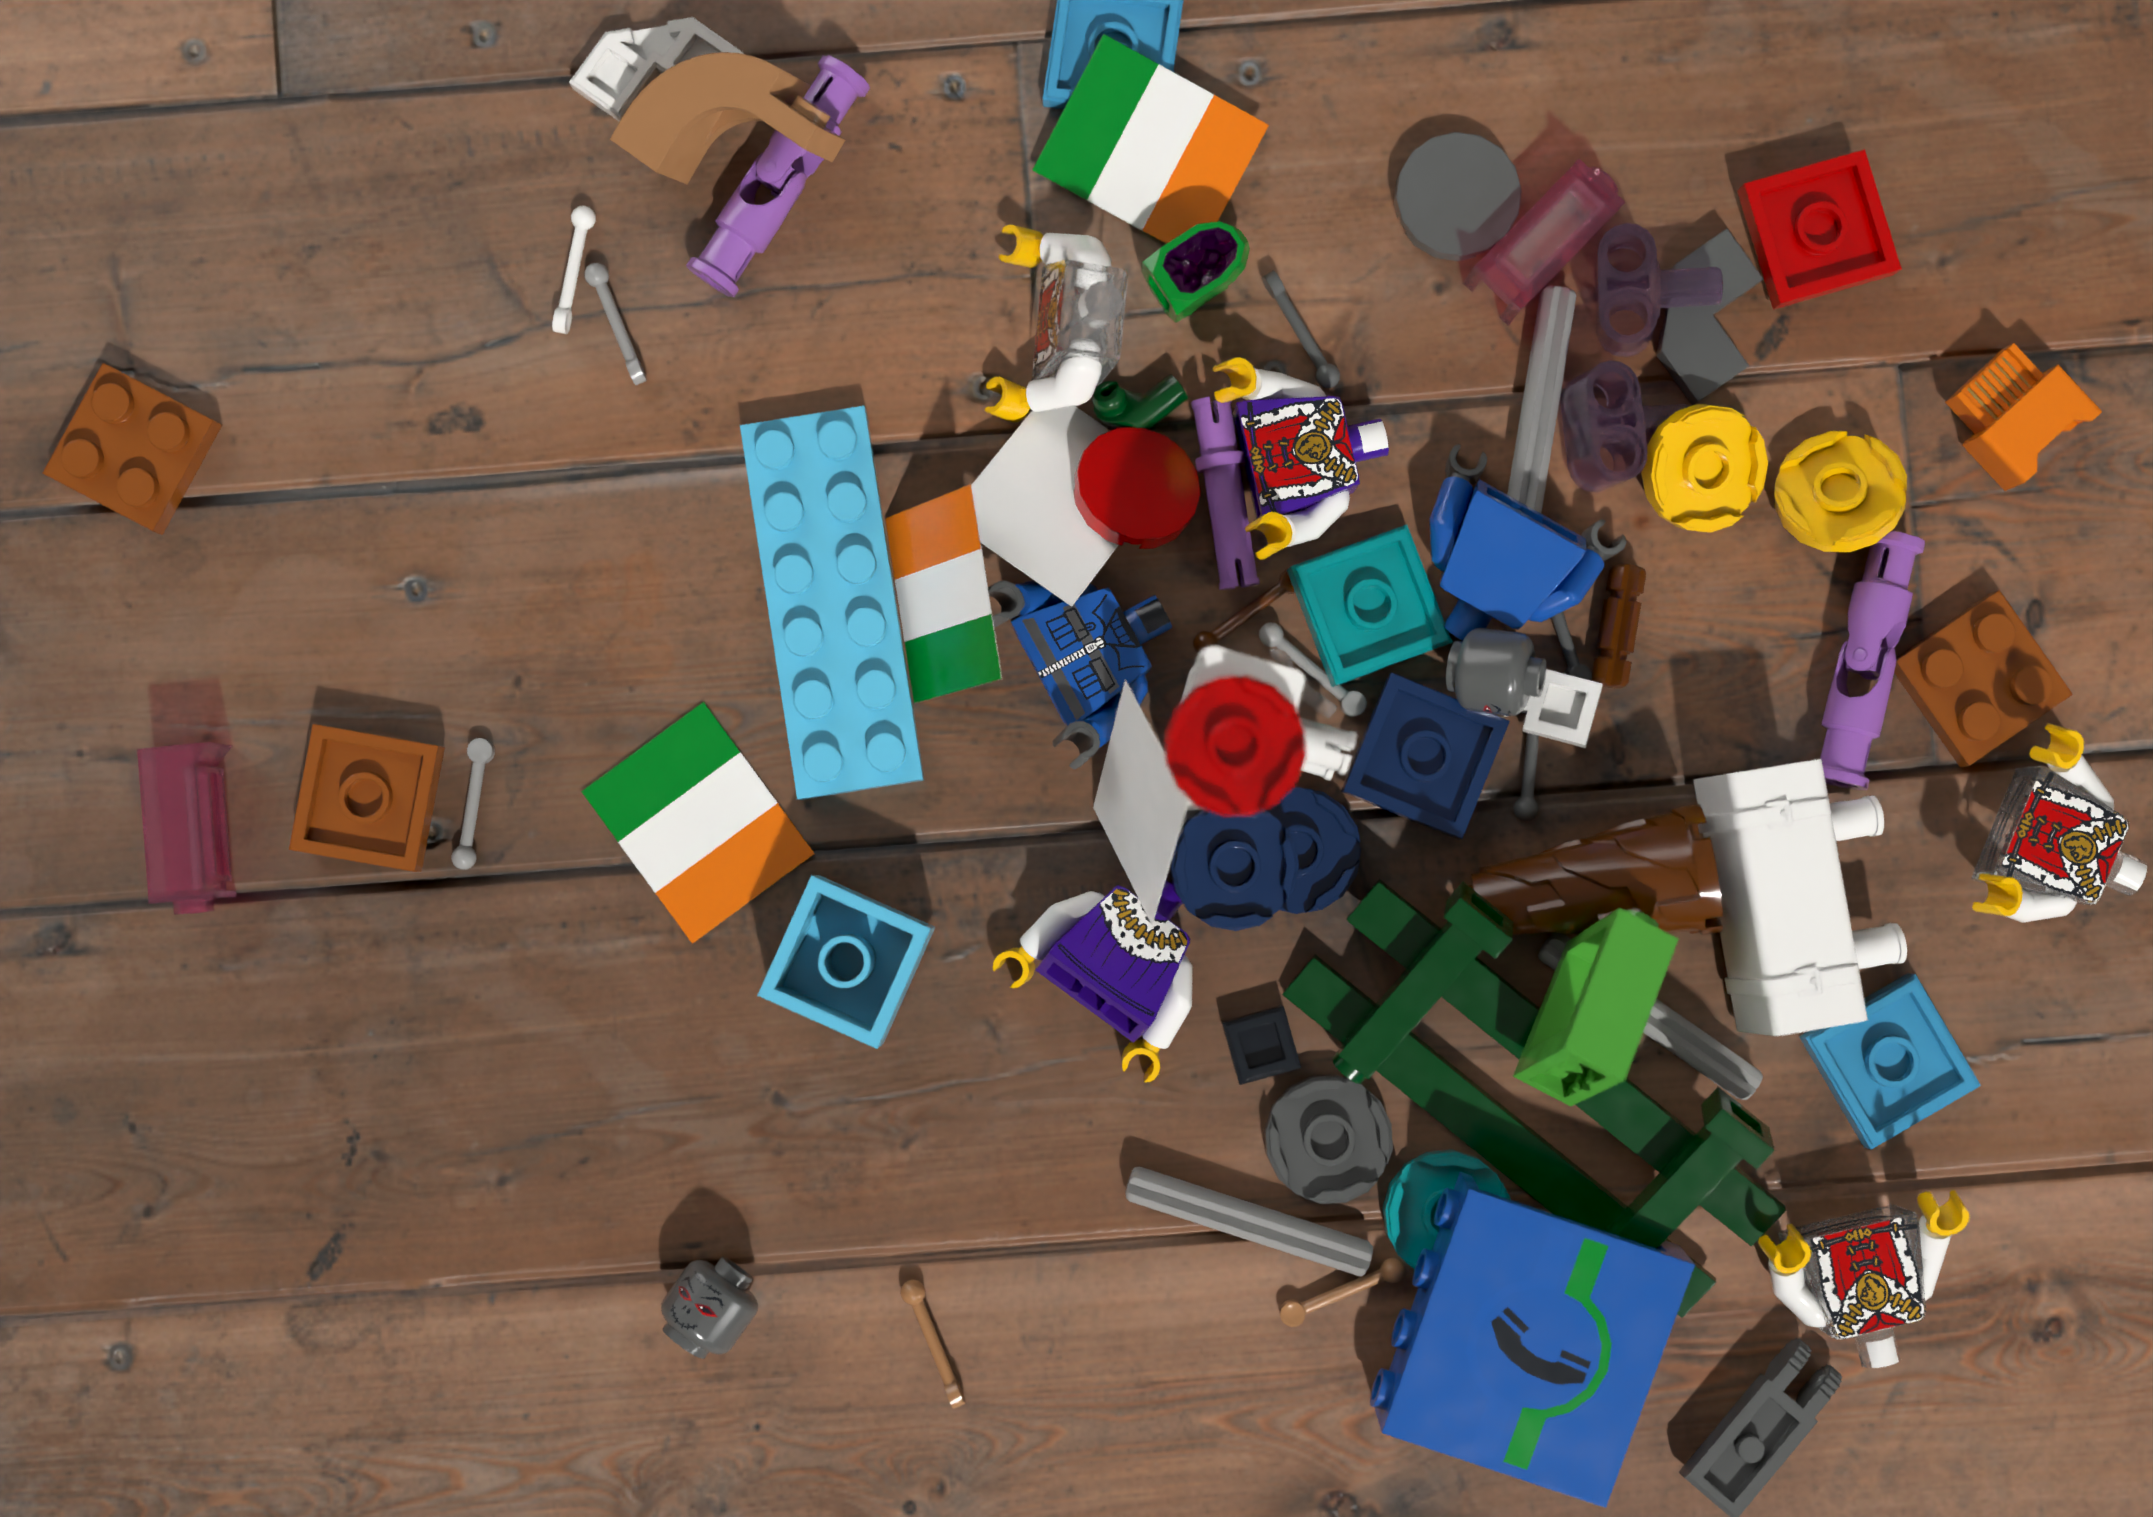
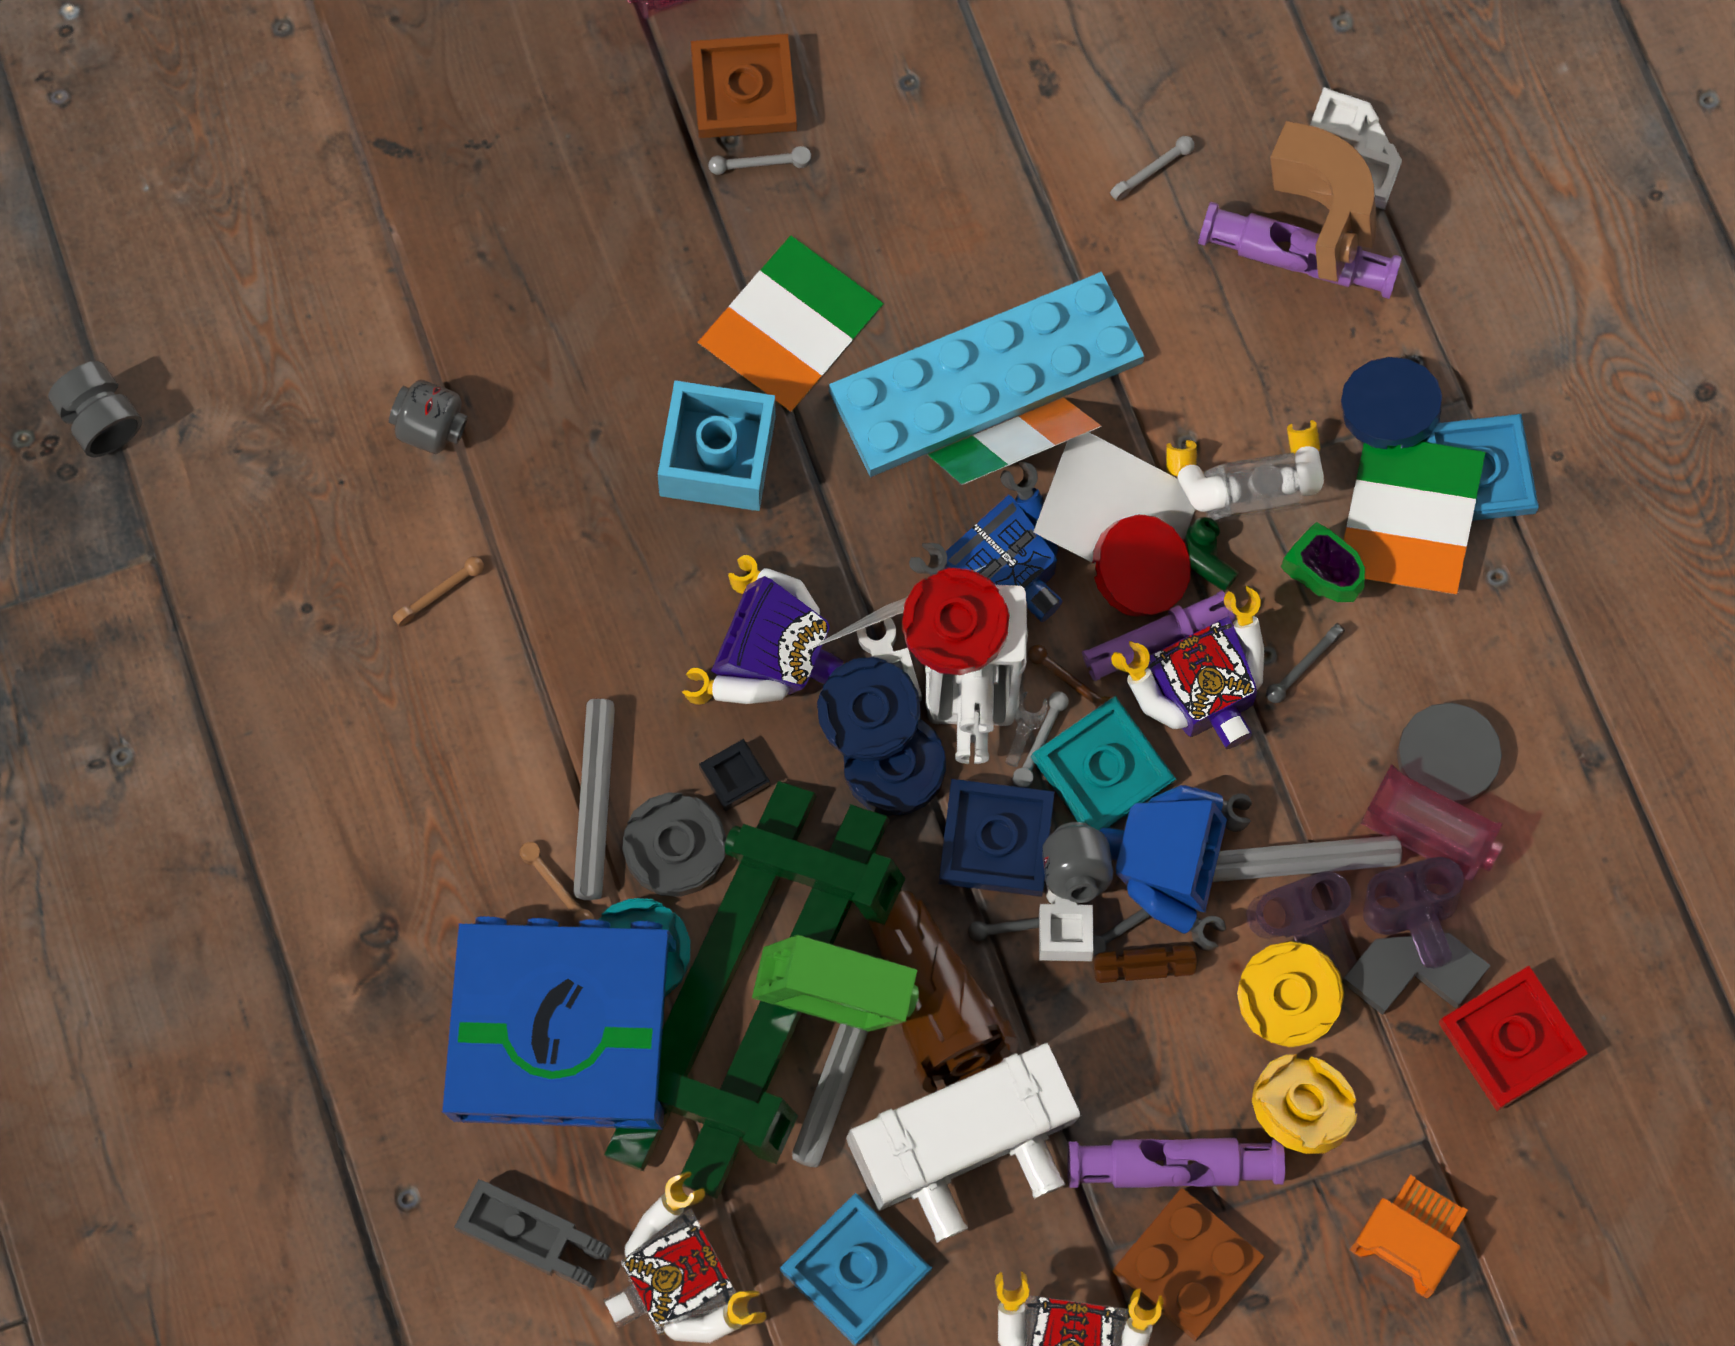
camera: 70 degrees right, 15 degrees down
(583, 219) = (1145, 129): white hinge -> none
(1007, 126) = (1391, 403): none -> dark blue tile

